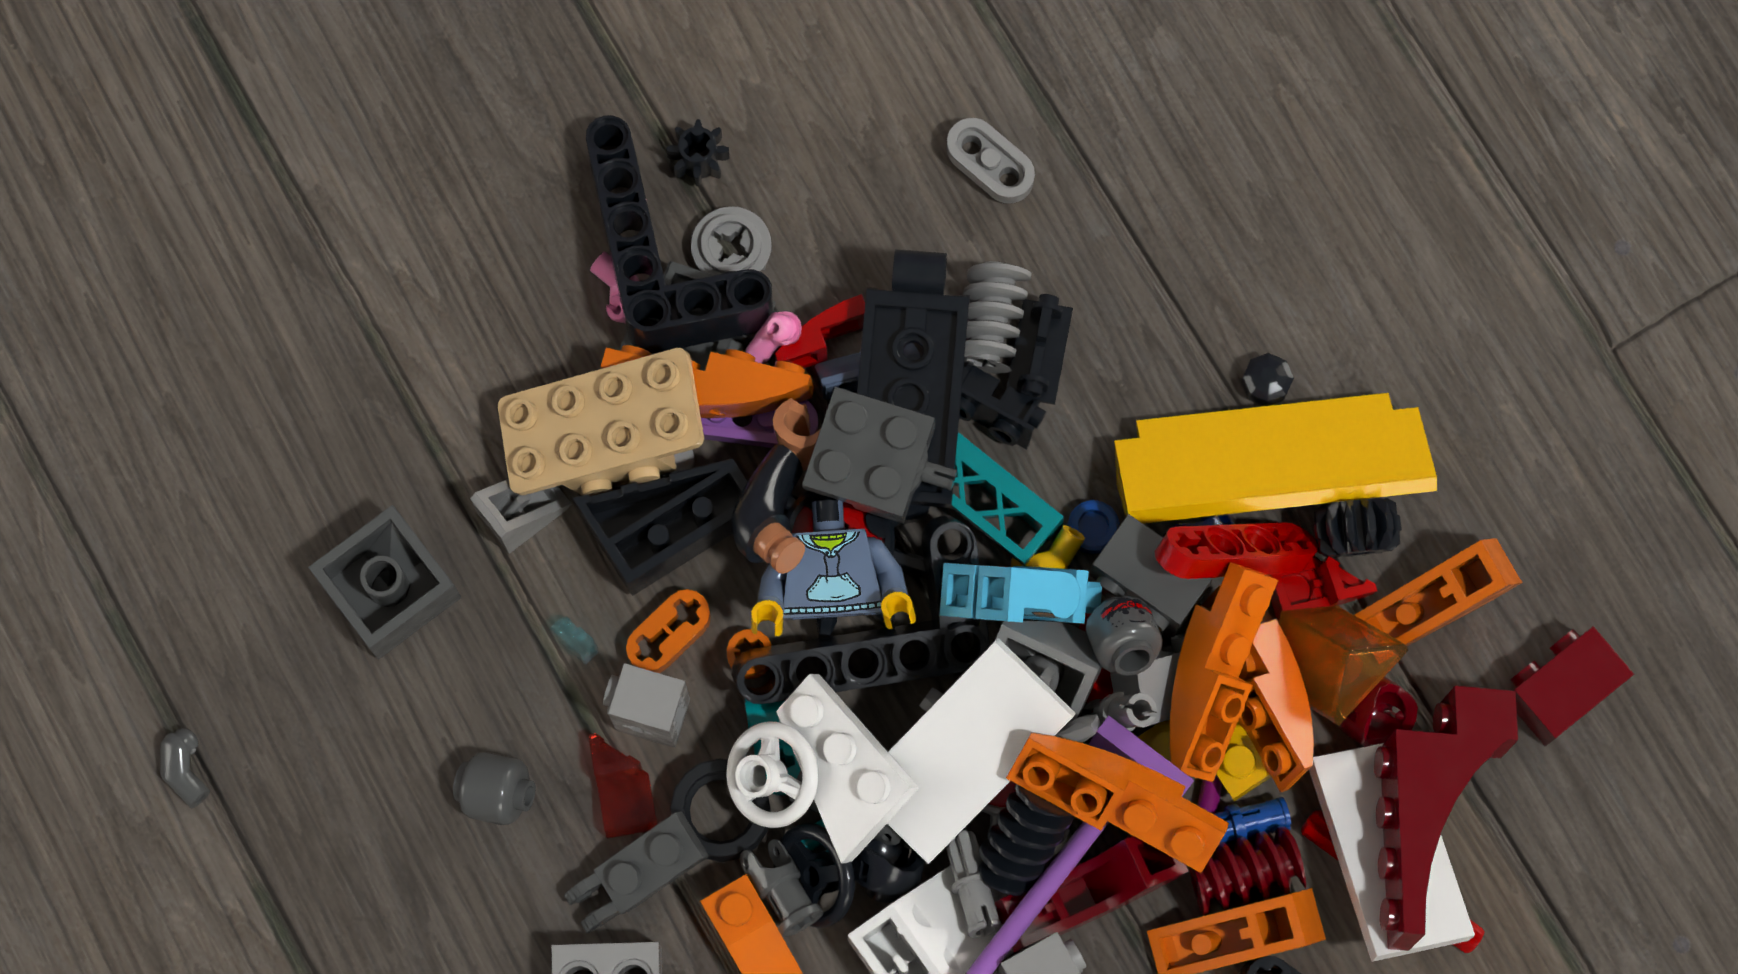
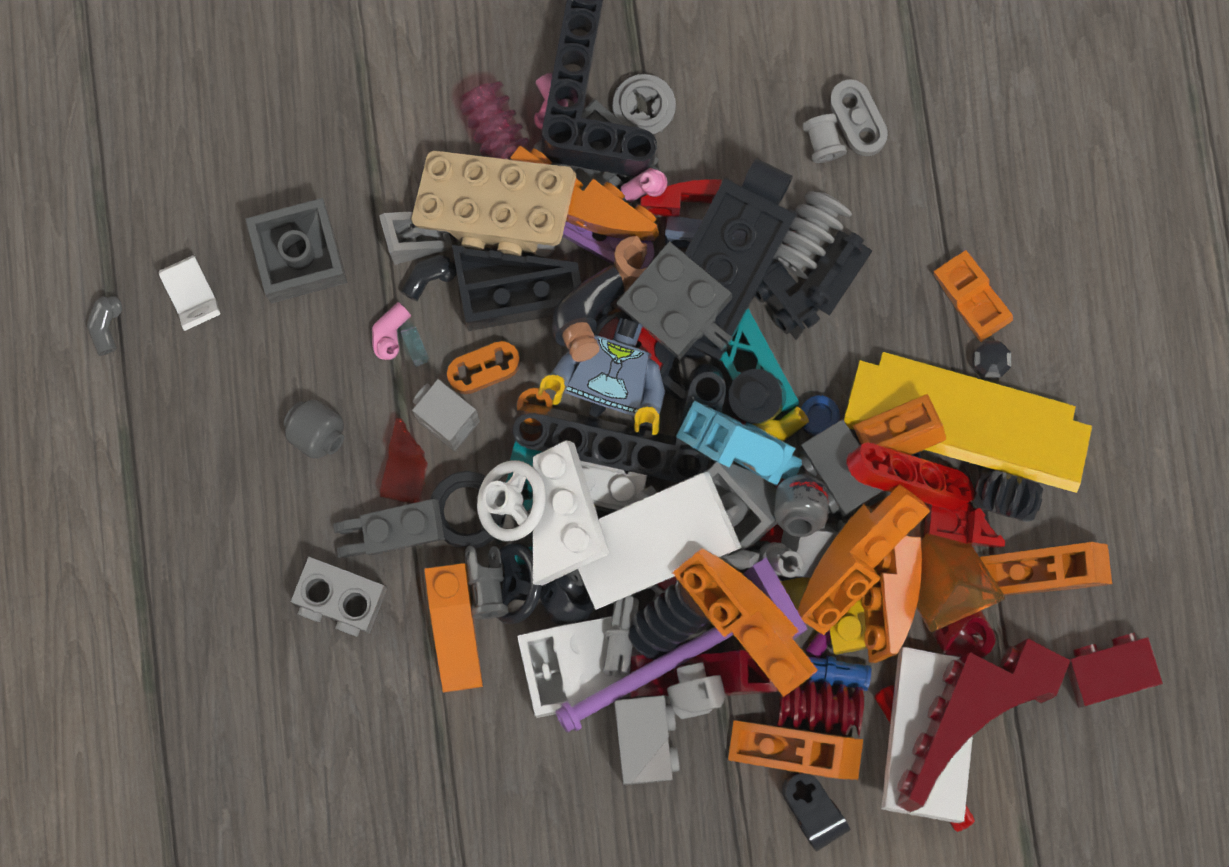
camera: 25 degrees right, 5 degrees up
(273, 685) = (189, 292): none -> white bracket
(532, 638) = (385, 332): none -> bright pink arm
(552, 544) = (427, 271): none -> black arm
(558, 335) = (491, 121): none -> clear pink piece
(699, 140) = (641, 34): black gear -> none
(887, 709) = (611, 487): none -> white brick
(960, 199) = (824, 138): none -> light grey bush
(1013, 530) = (757, 396): none -> black piece
(1091, 912) = (696, 692): none -> light grey piece
(1205, 494) = (904, 428): none -> orange slope
(1211, 314) = (972, 296): none -> orange slope

